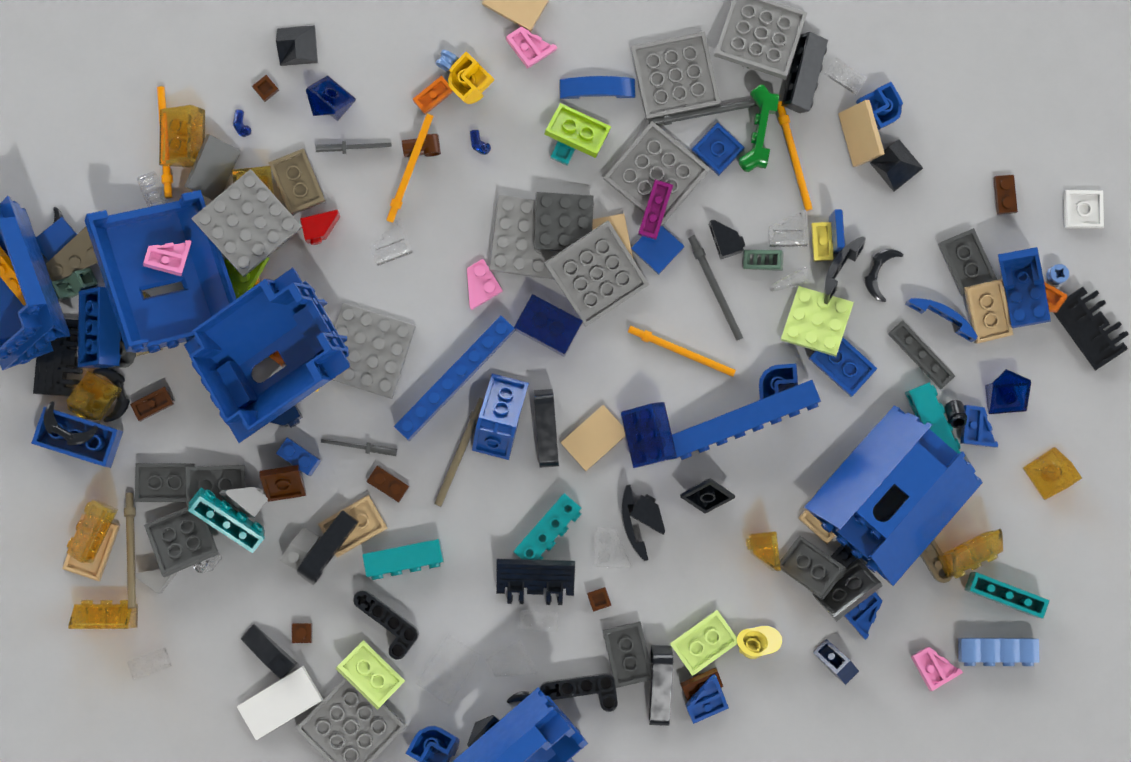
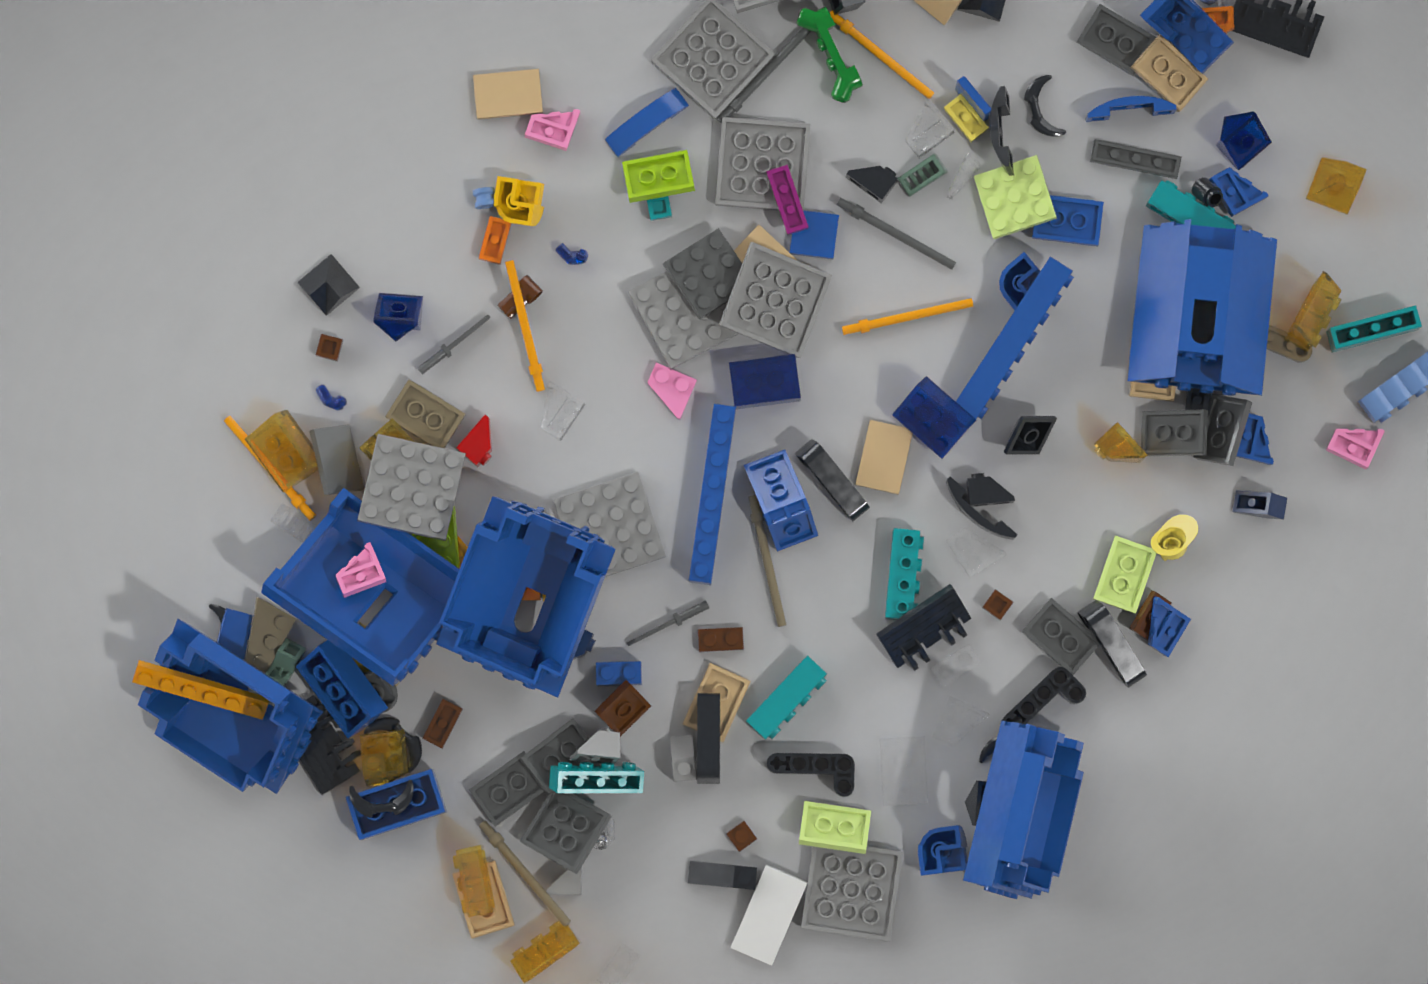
camera: 25 degrees left, 0 degrees up
(718, 149) = (803, 99): blue tile -> none

